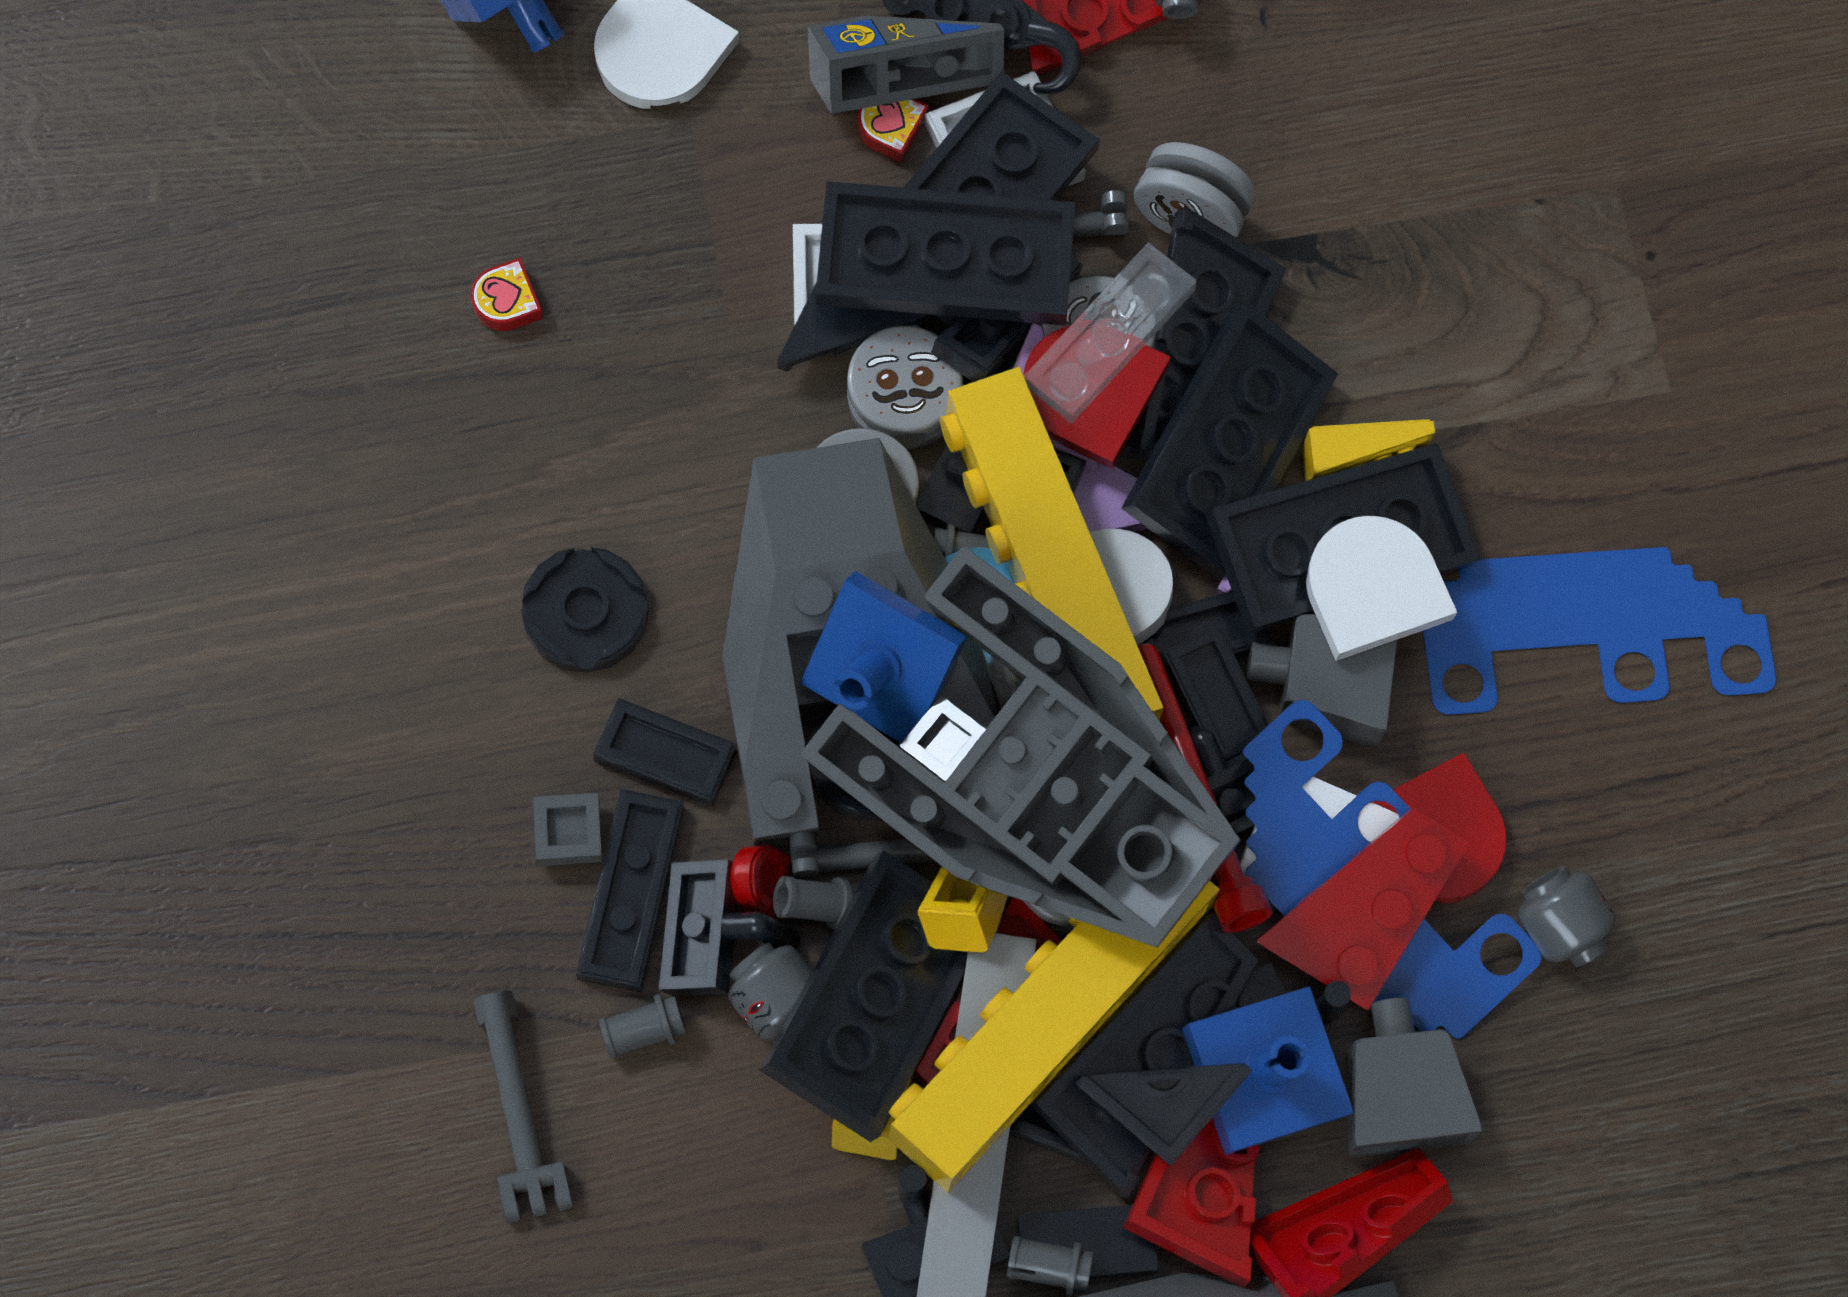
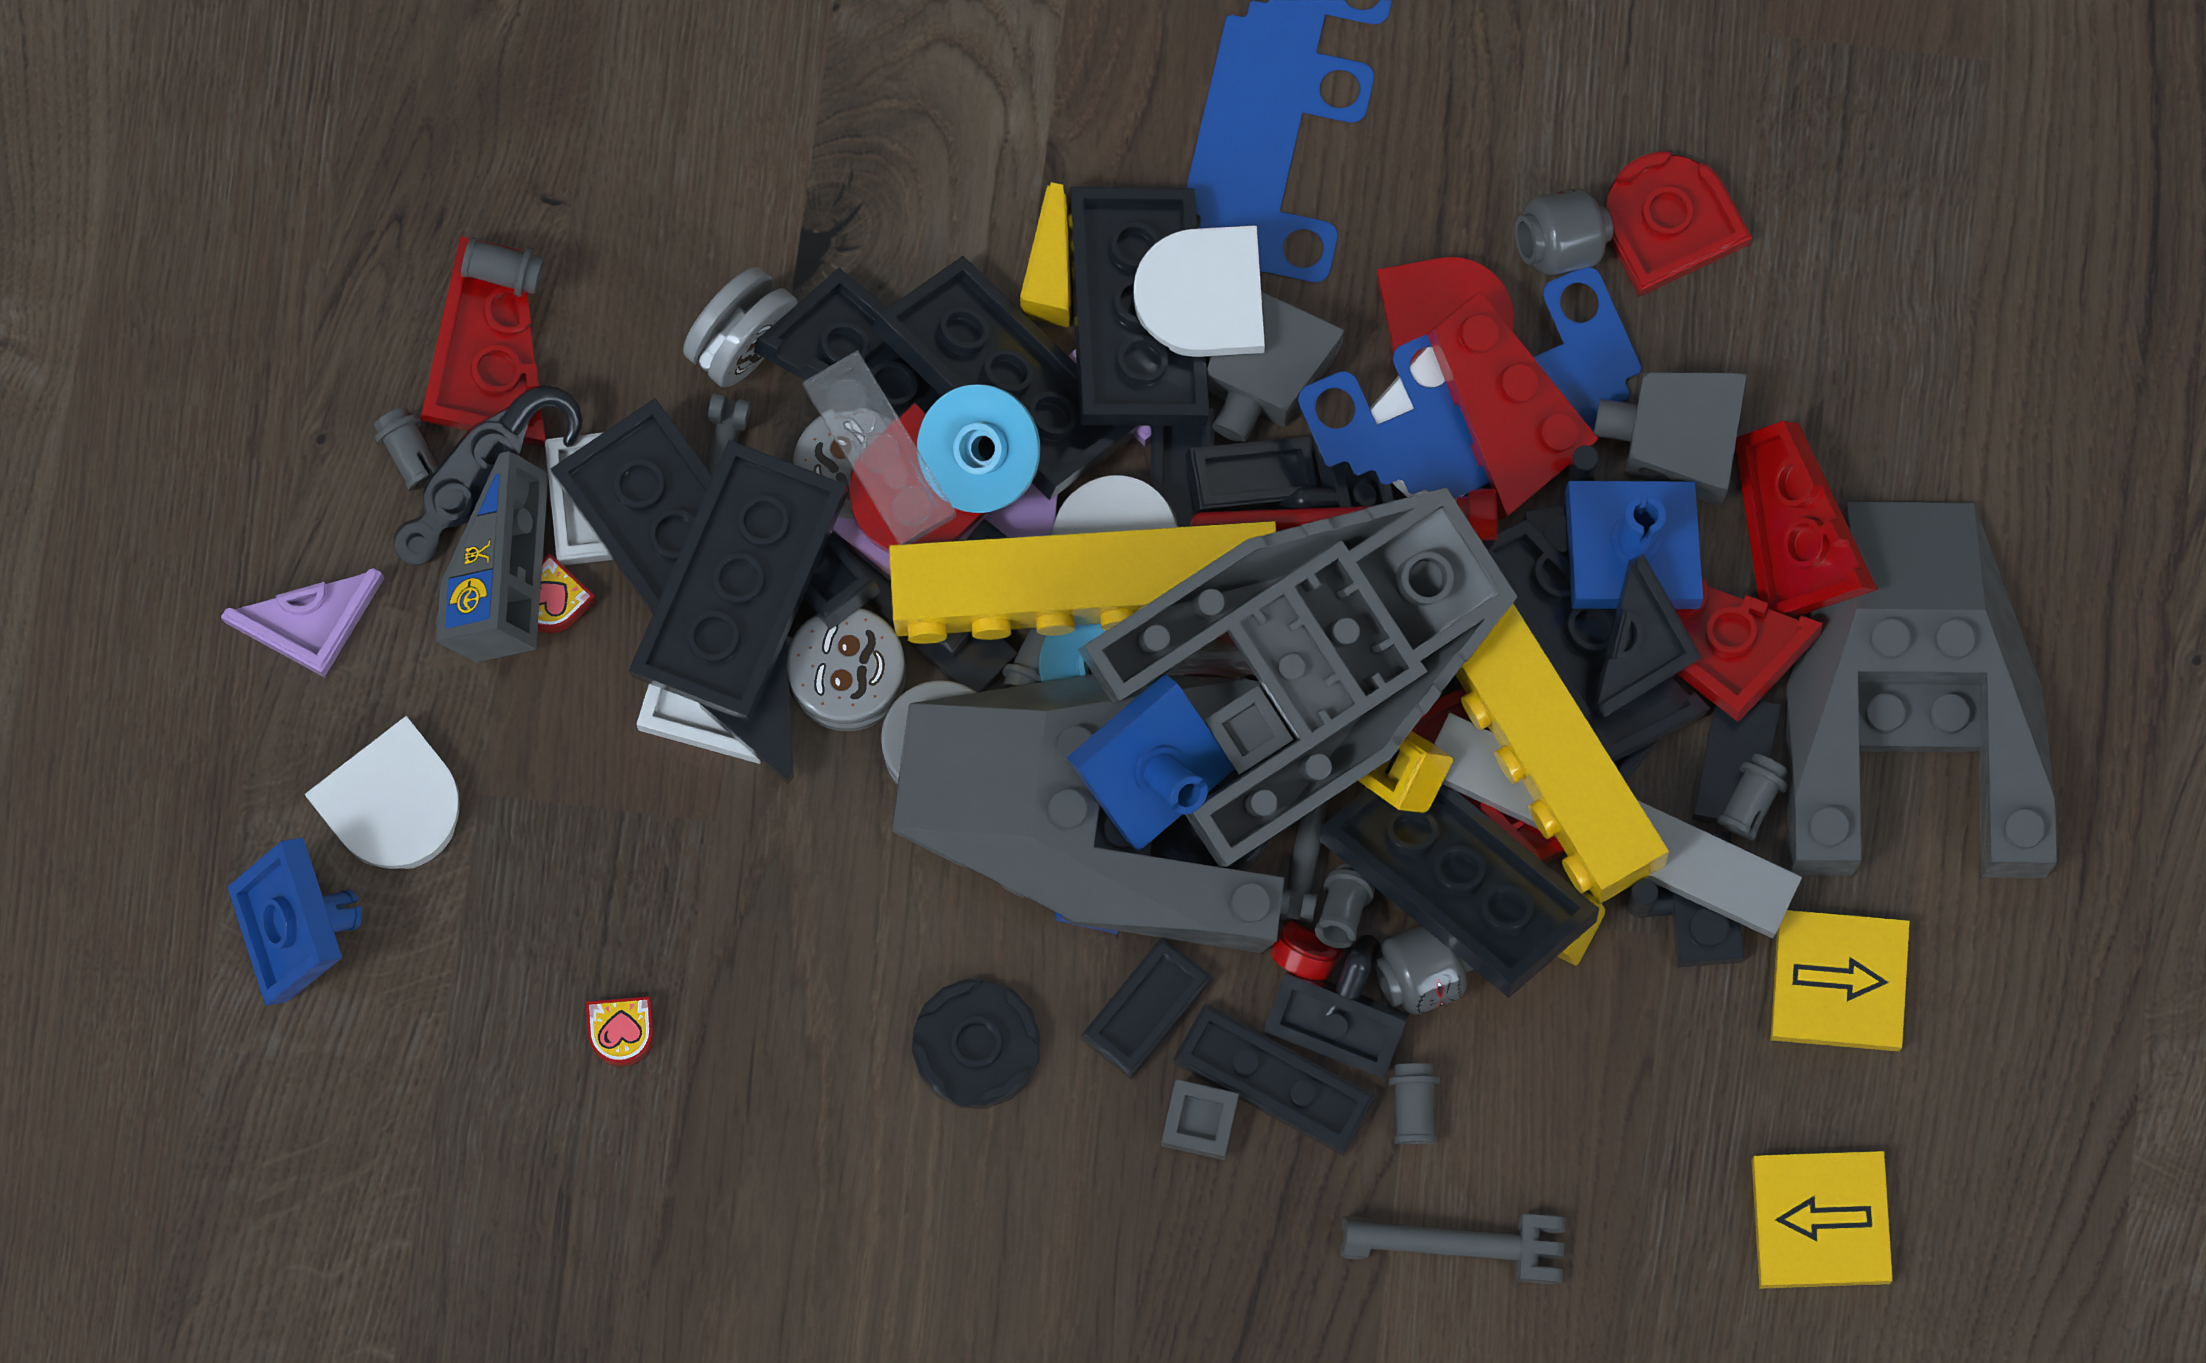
camera: 65 degrees left, 5 degrees up
(1139, 399) = (951, 440): none -> medium azure dish
(1621, 1021) = (1671, 219): none -> red tile

